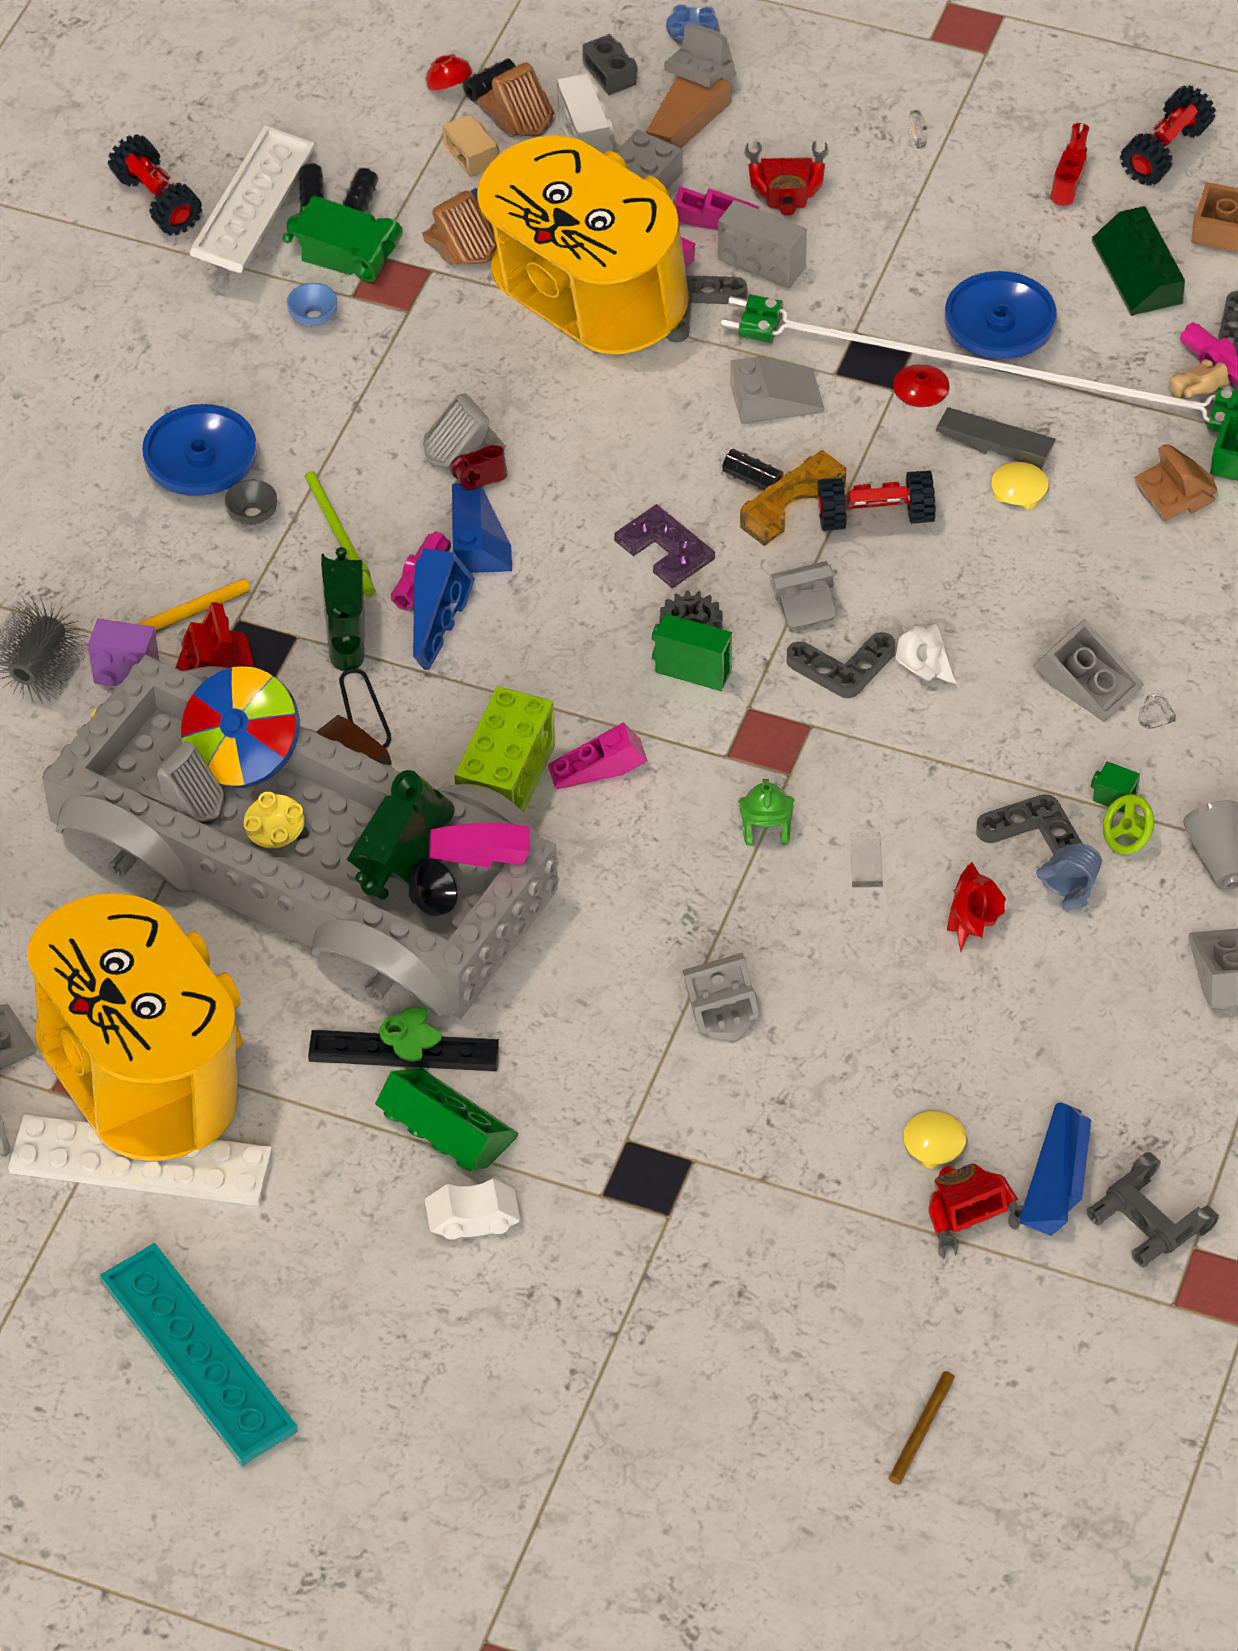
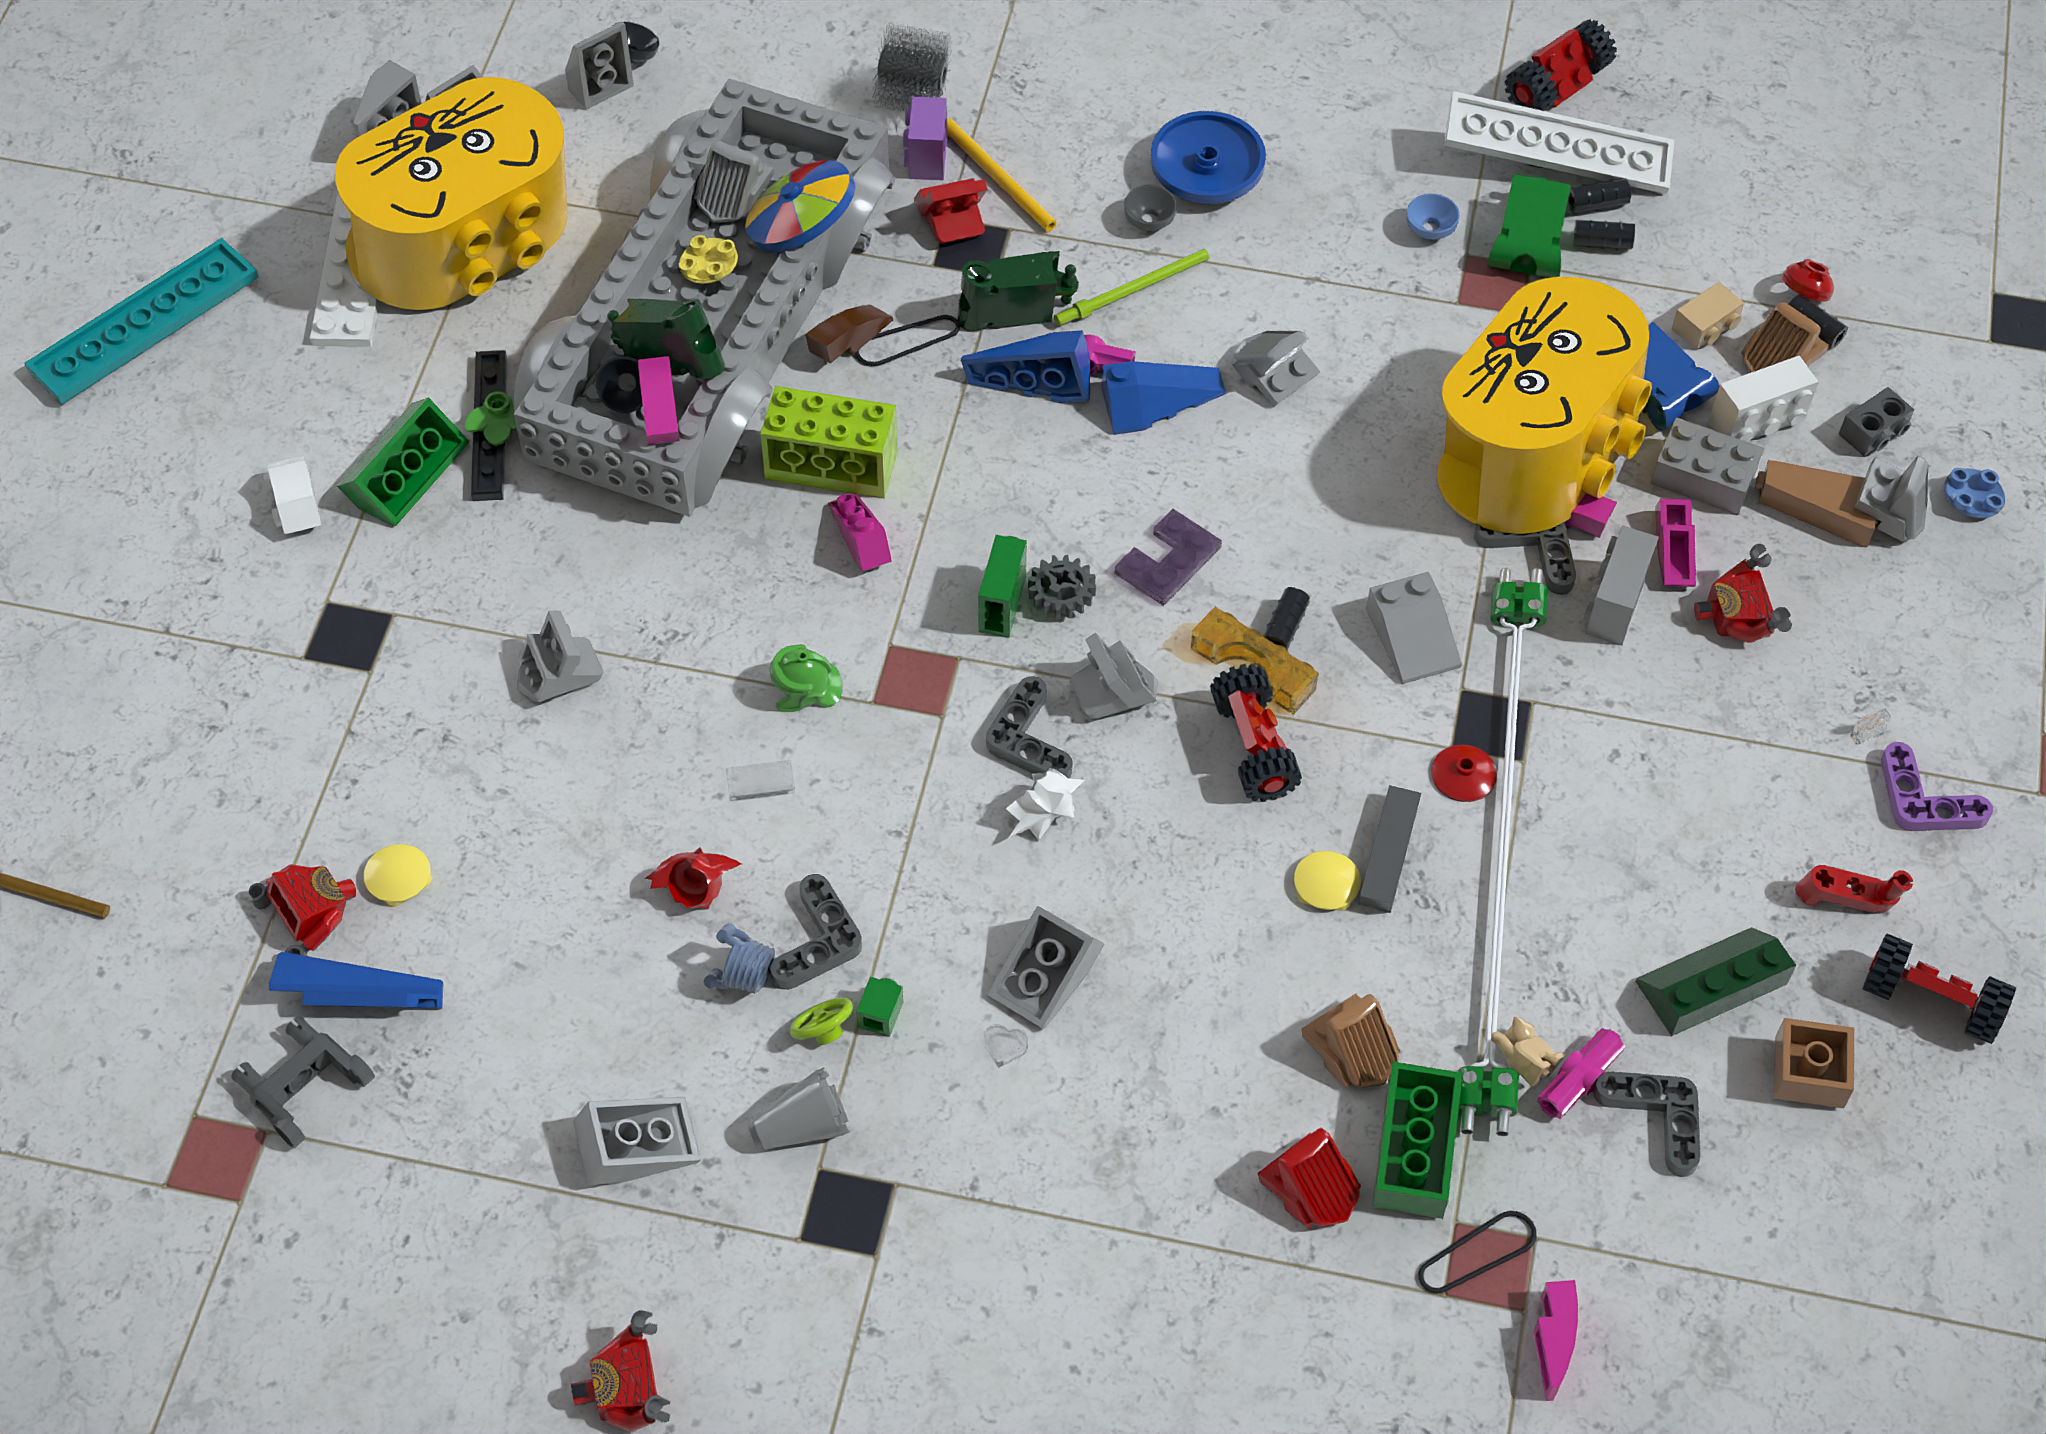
camera: 80 degrees right, 5 degrees up
(483, 468) = (1237, 382): dark red piece -> none
(987, 120) = (1917, 802): none -> medium lavender beam
(1000, 314) = (1578, 832): blue dish -> none

